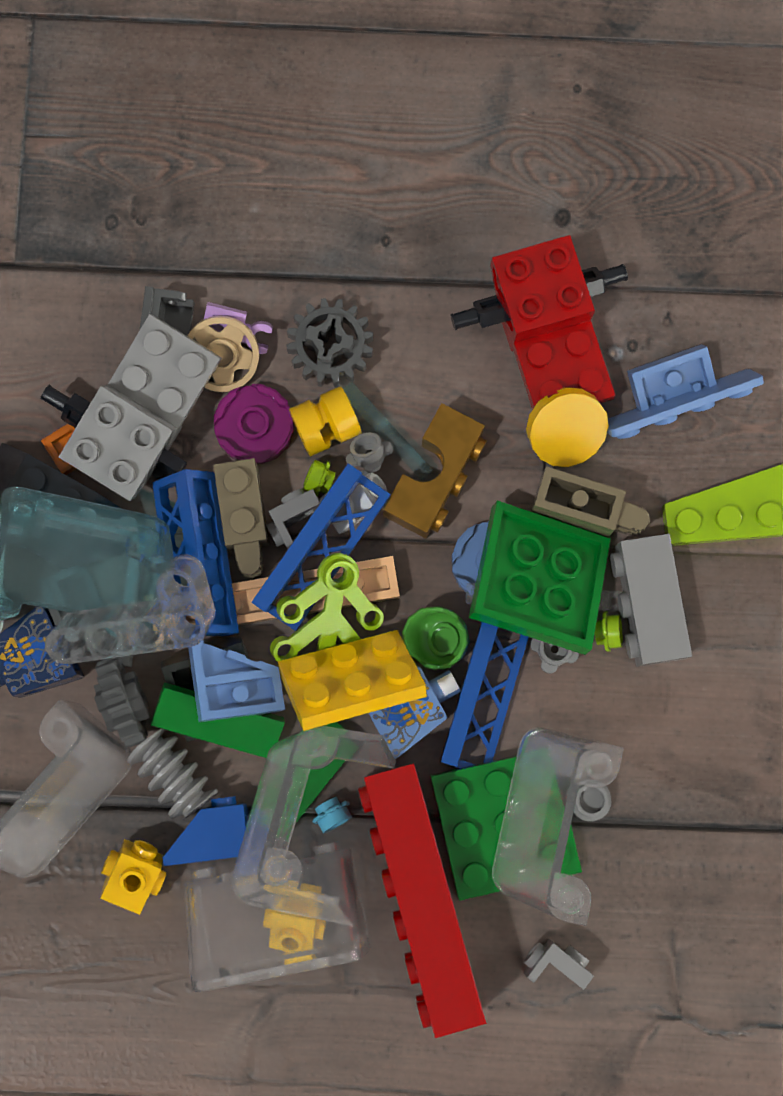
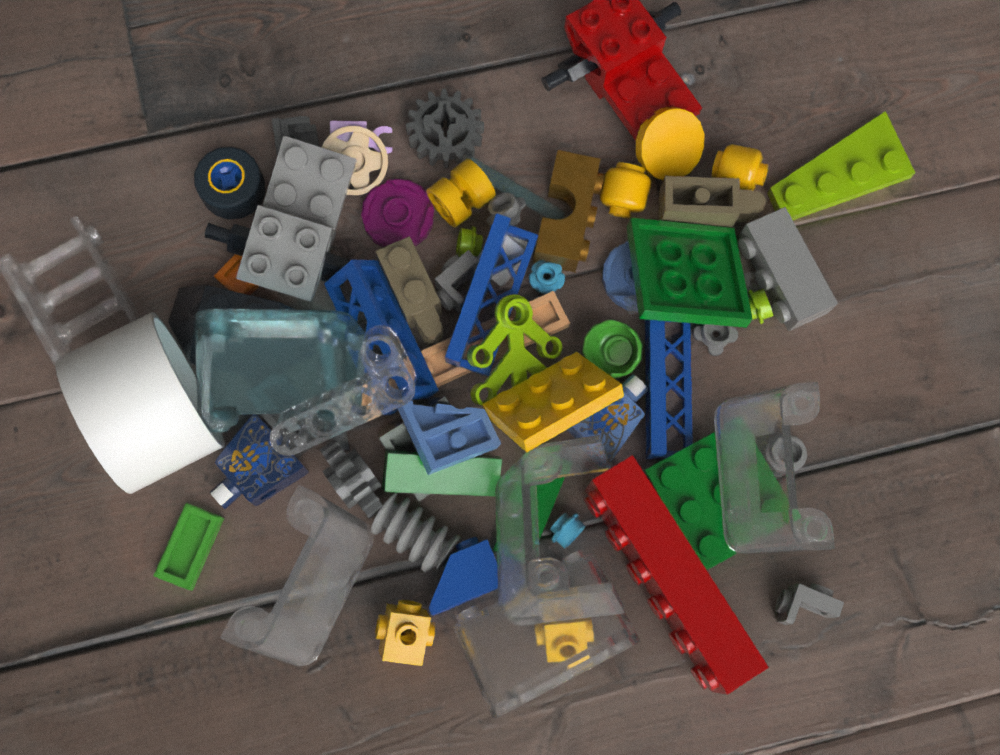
camera: 20 degrees left, 5 degrees down
(75, 331) = (224, 170): none -> black wheel
(386, 546) = (544, 285): none -> medium azure plate
(504, 464) = (625, 189): none -> yellow head
(637, 474) = (741, 163): none -> yellow head
(677, 386) = (750, 87): medium blue bracket -> none

